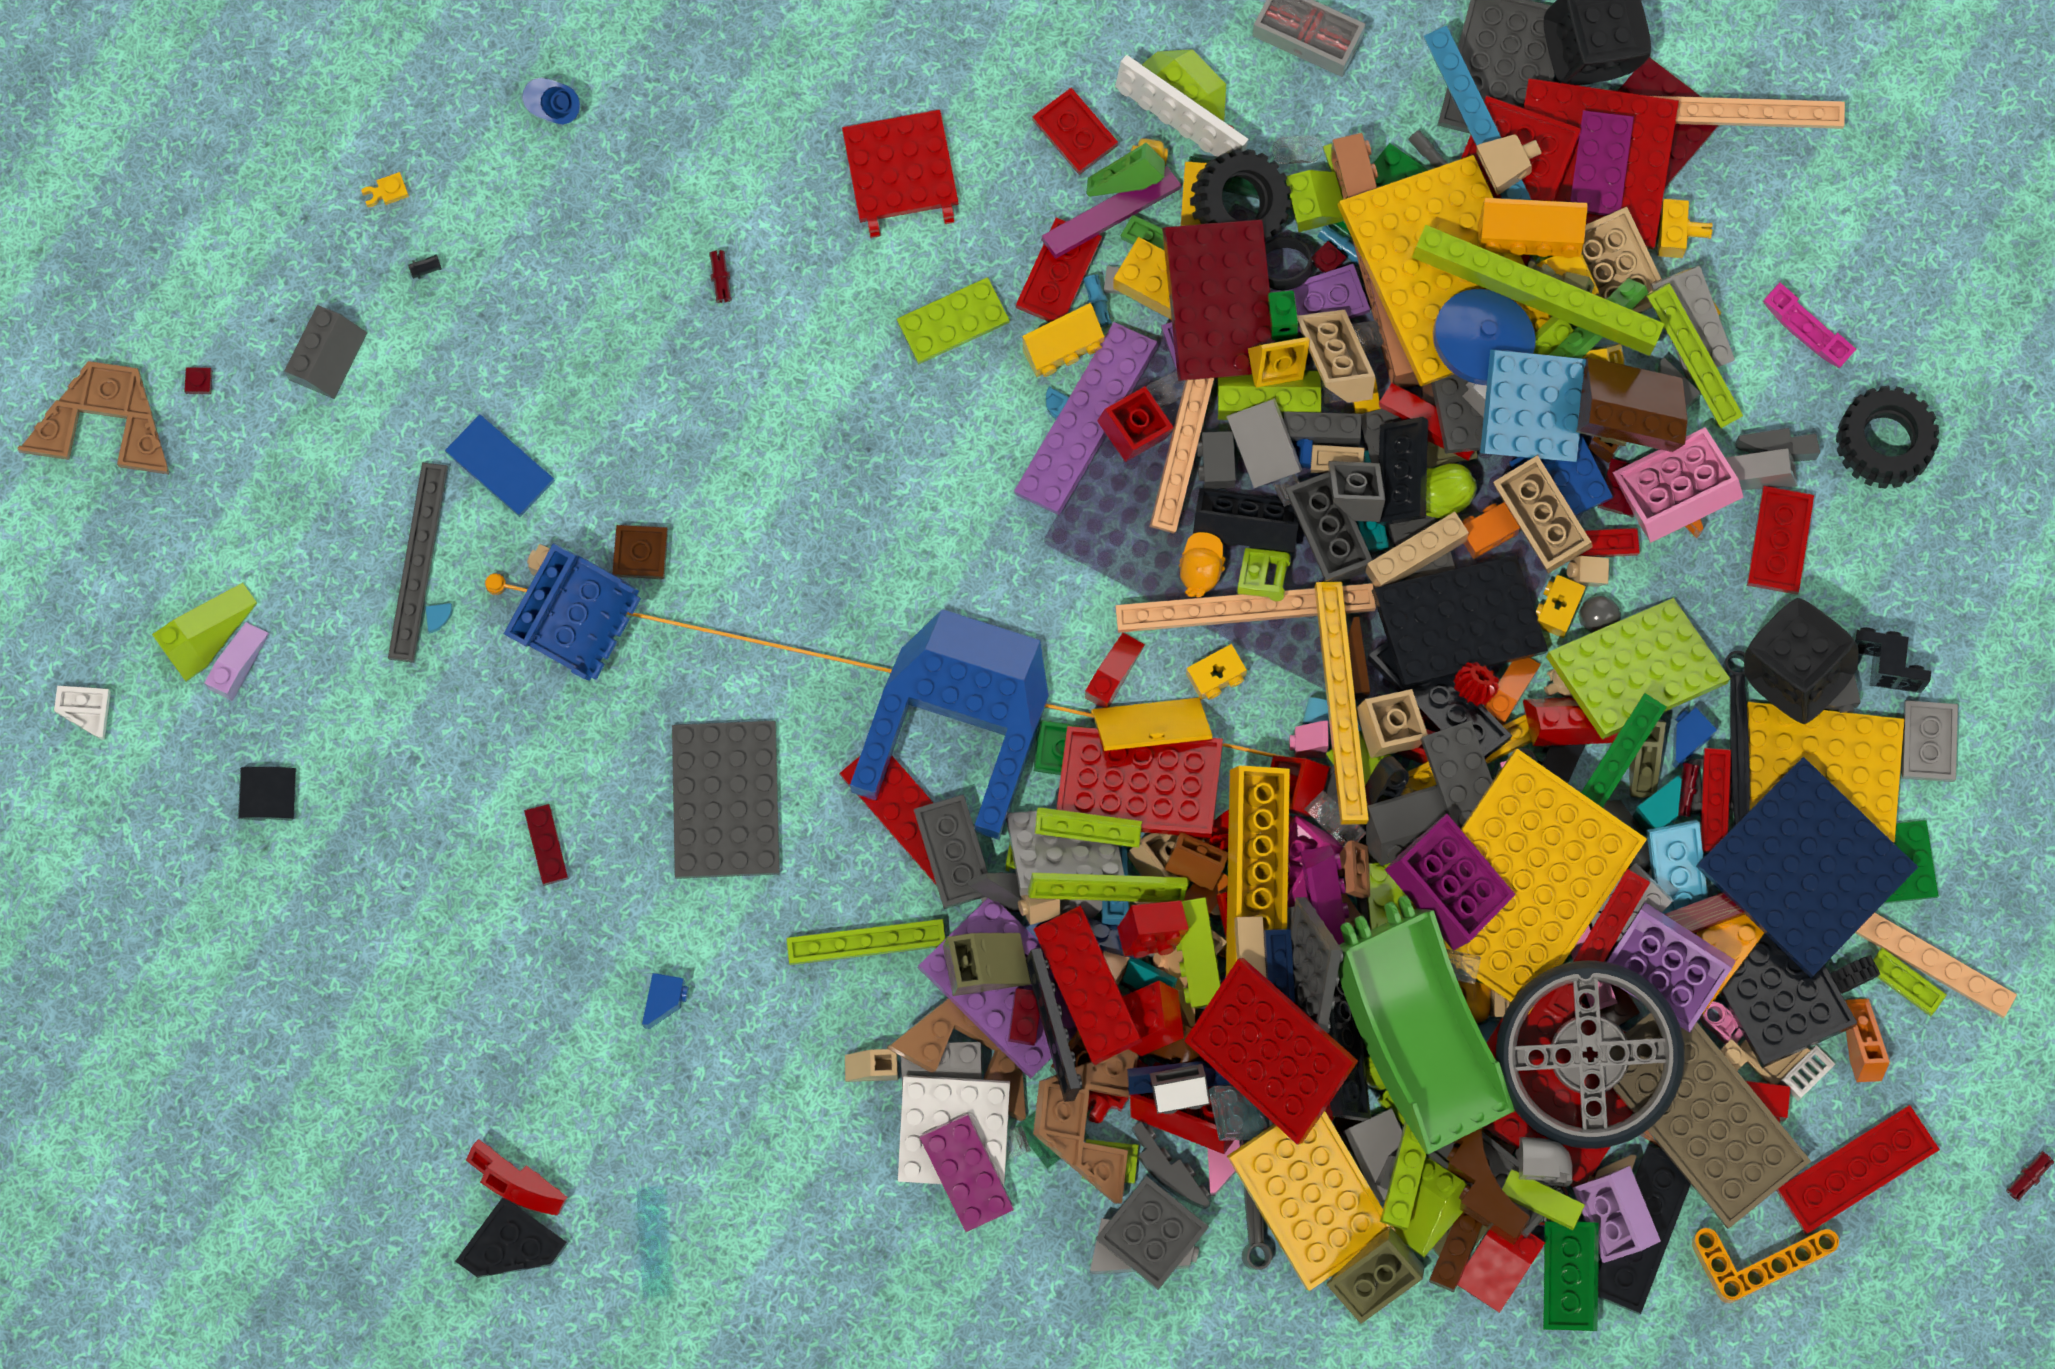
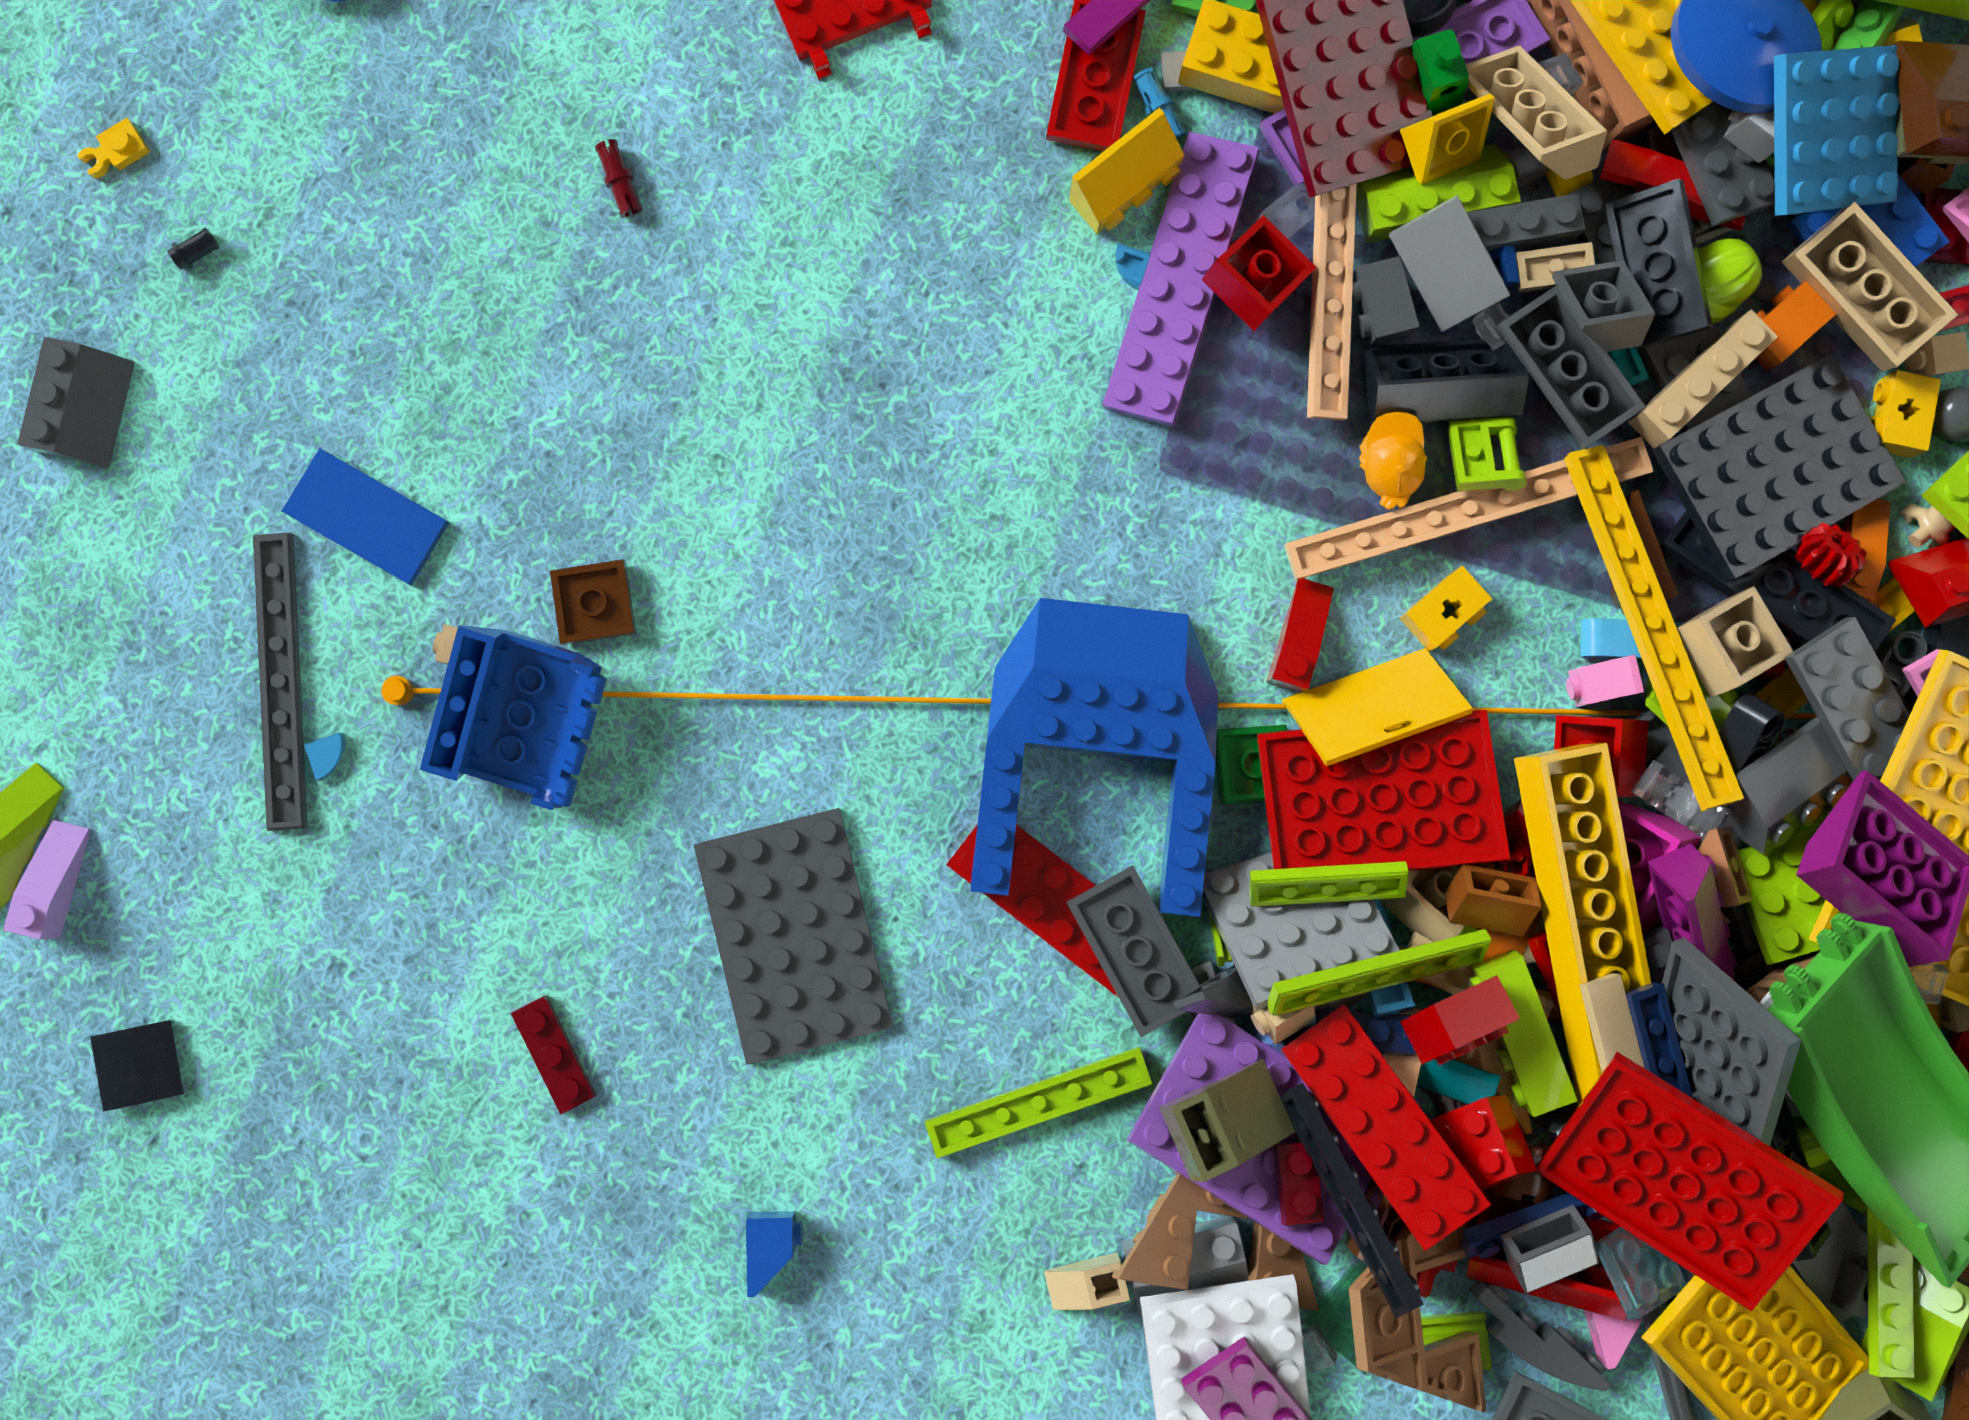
camera: 15 degrees left, 10 degrees up
(953, 320) = (961, 175): lime plate -> none

